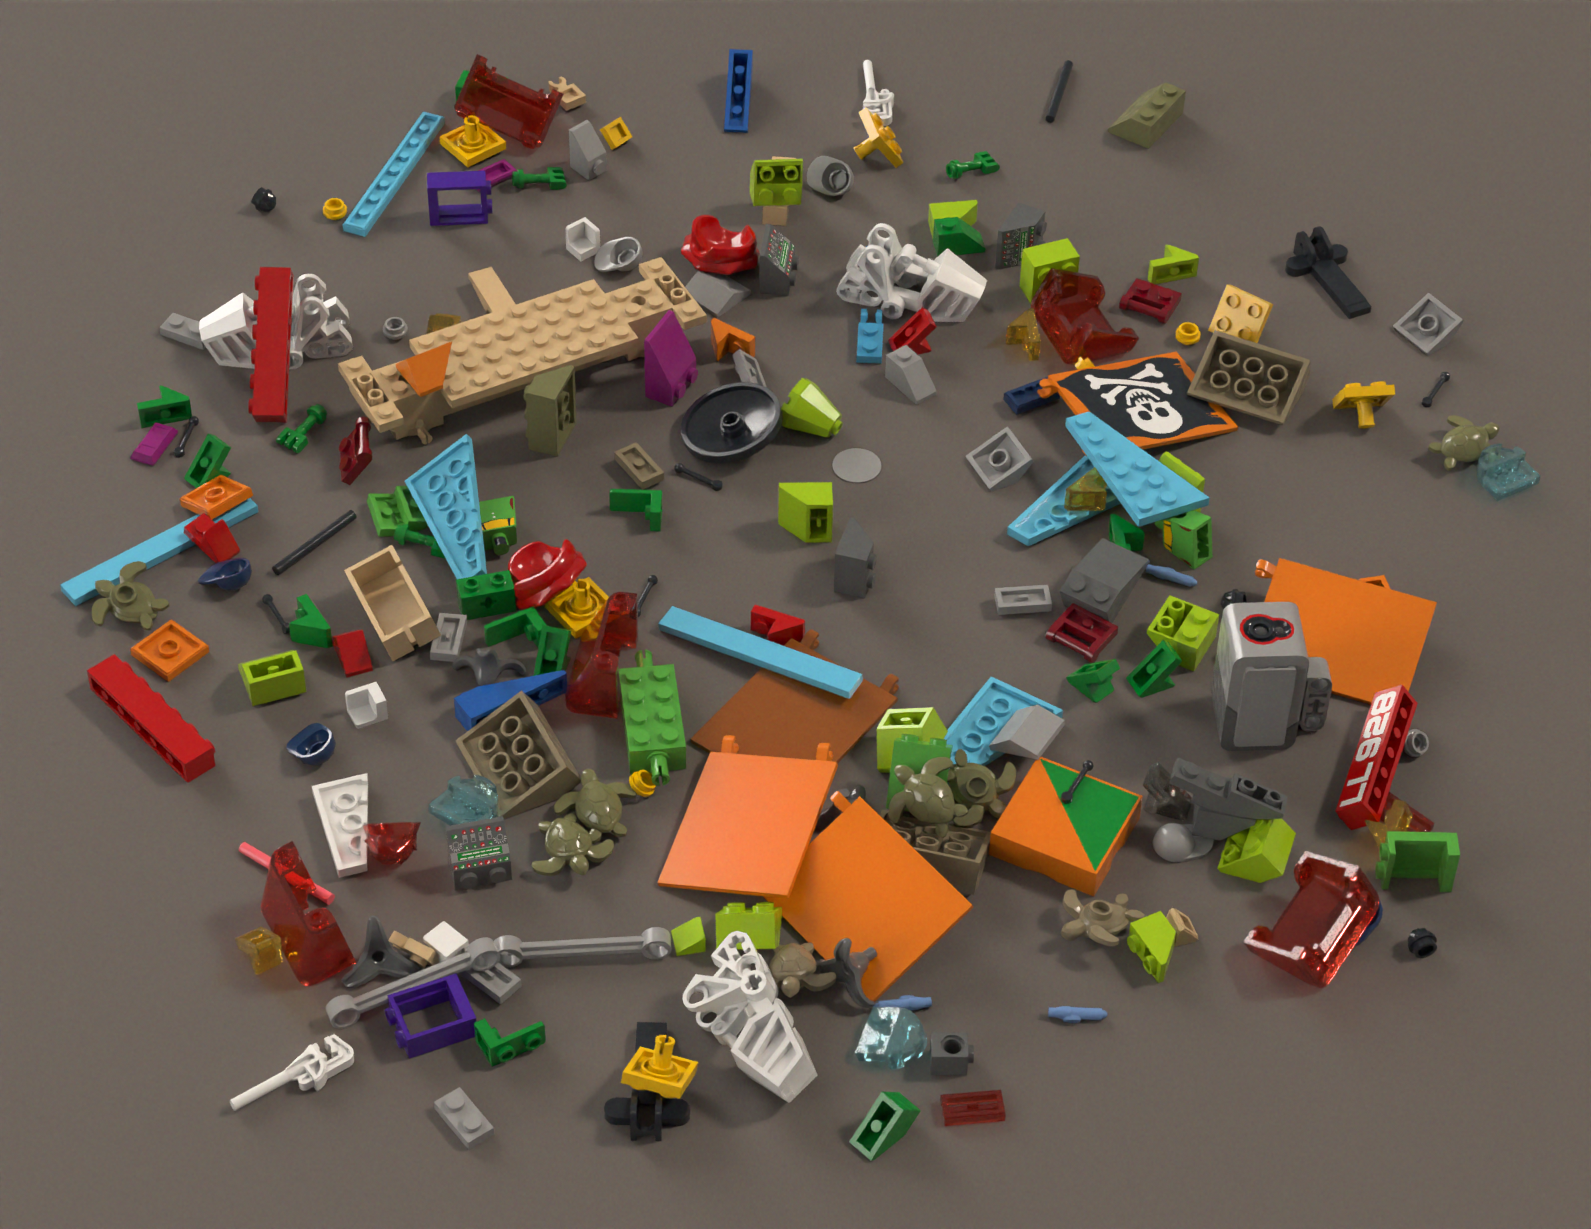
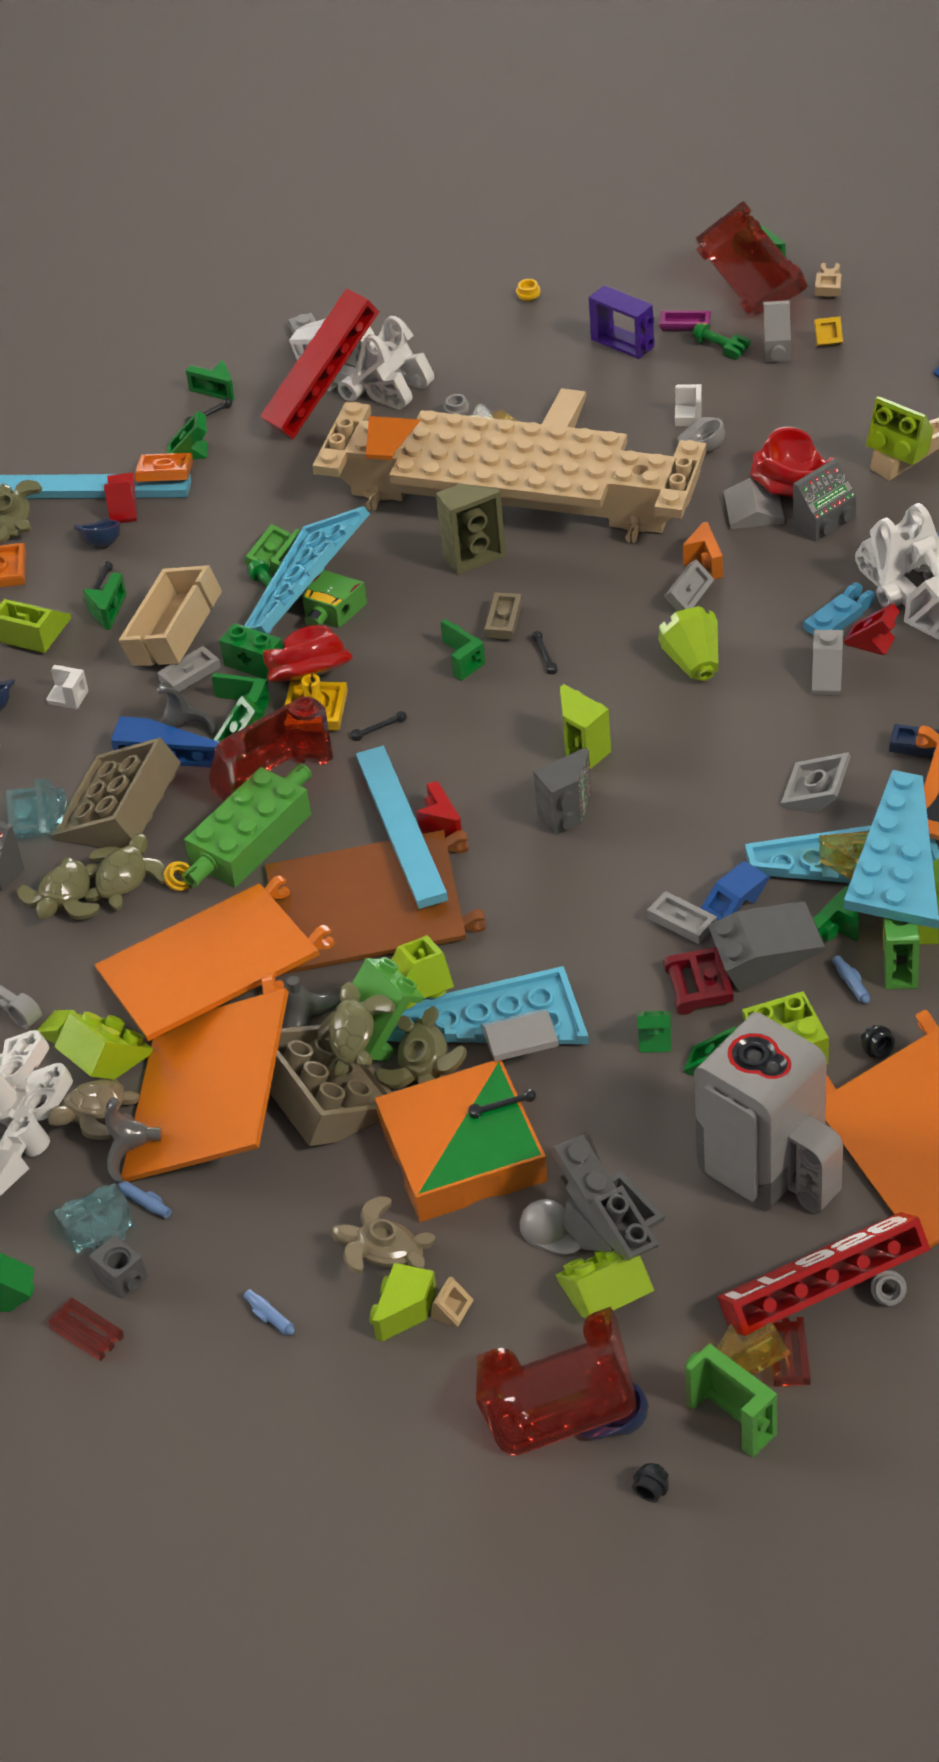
camera: 50 degrees right, 0 degrees up
(154, 444) = (180, 406): magenta tile -> none
(264, 200) = (482, 257): black plate -> none
(295, 439) = (276, 453): green hinge -> none
(314, 542) = (194, 541): black bar -> none
(352, 652) = (104, 643): red slope -> none
(355, 451) = (293, 487): dark red plate -> none
(393, 174) = (621, 280): medium azure tile -> none
(472, 142) = (700, 285): yellow plate -> none
(668, 361) = (616, 534): magenta slope -> none
(731, 422) = (614, 618): black dish -> none
(856, 465) = (692, 717): light grey sticker -> none
(1039, 561) = (731, 891): none -> blue slope

